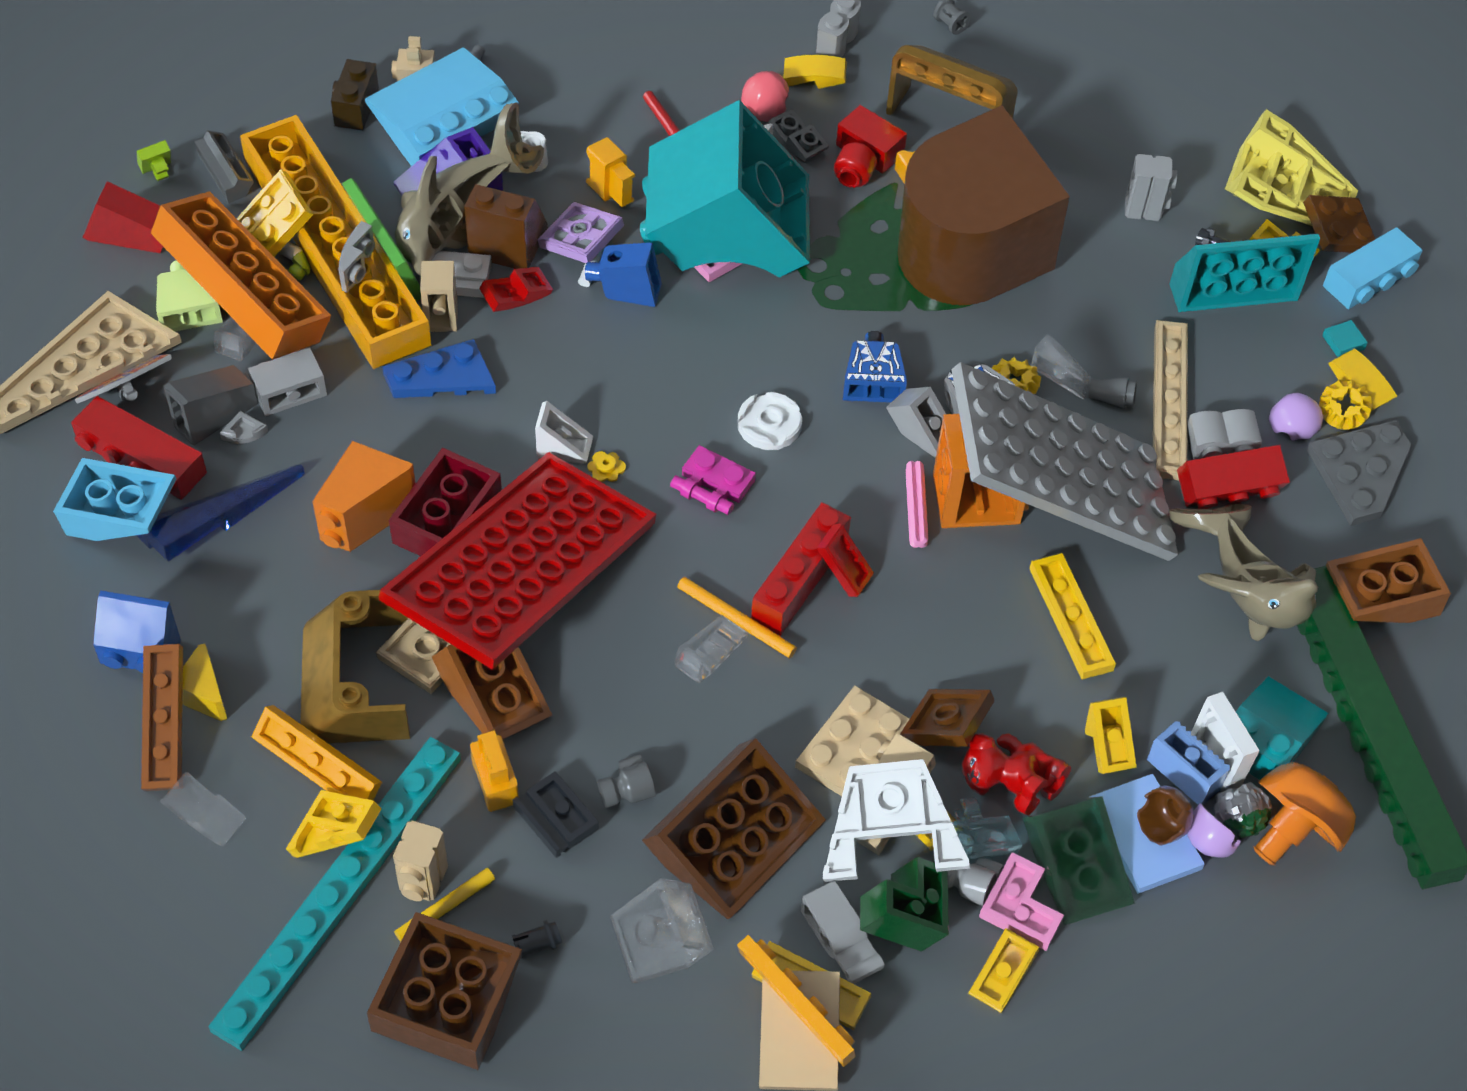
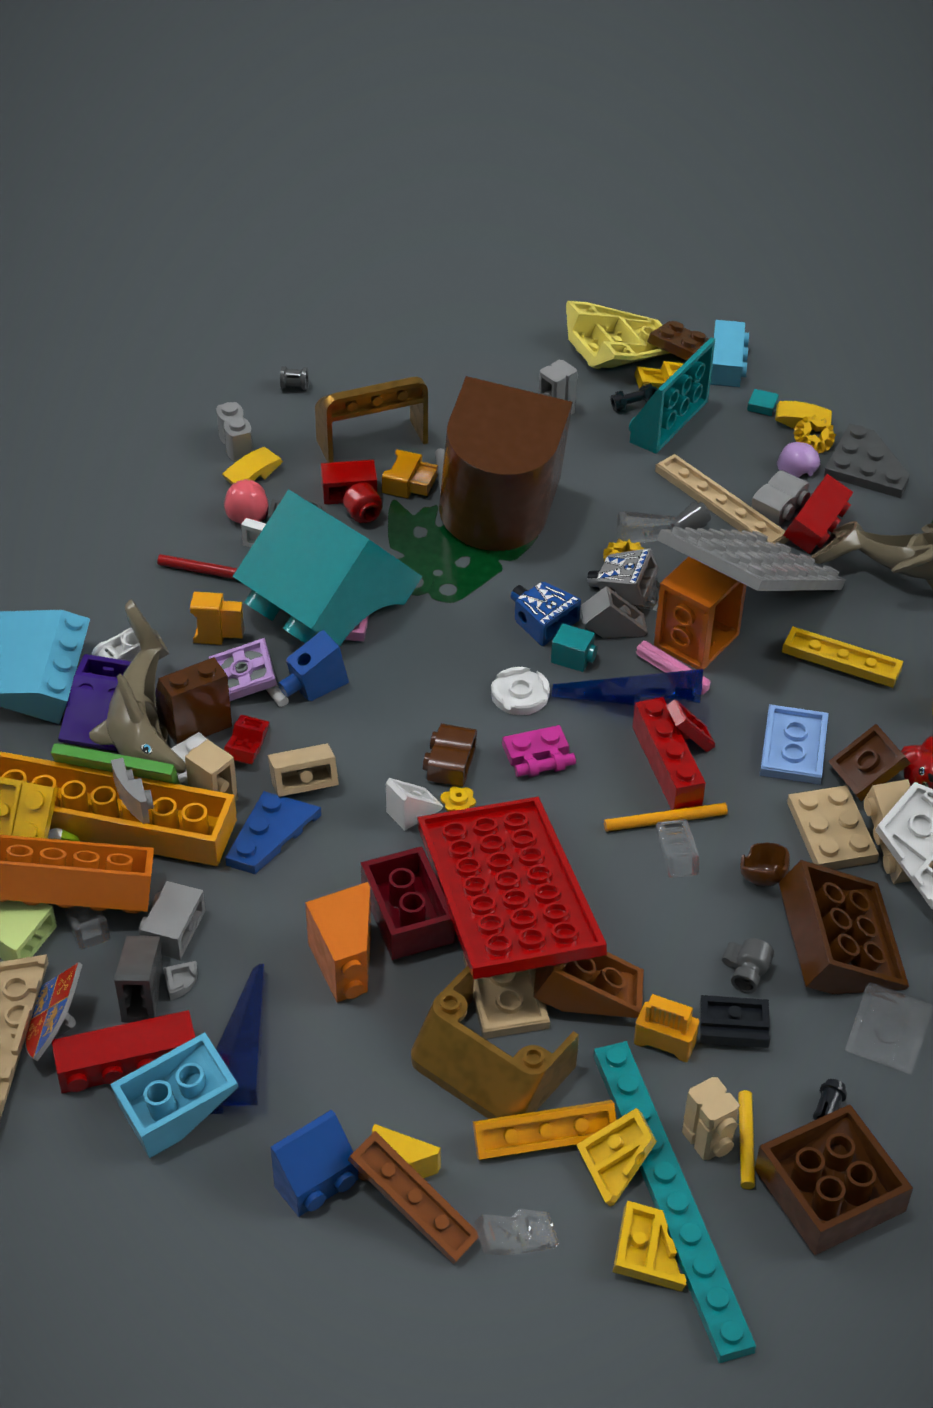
camera: 45 degrees left, 10 degrees down
(266, 905) = (646, 1248): none -> yellow wing
(515, 345) = (303, 770): none -> tan brick
(640, 426) = (450, 754): none -> reddish brown brick
(748, 721) = (765, 864): none -> reddish brown hair
(853, 419) = (573, 647): none -> teal brick
(869, 511) = (627, 690): none -> clear blue wedge
(926, 651) = (794, 744): none -> light blue tile

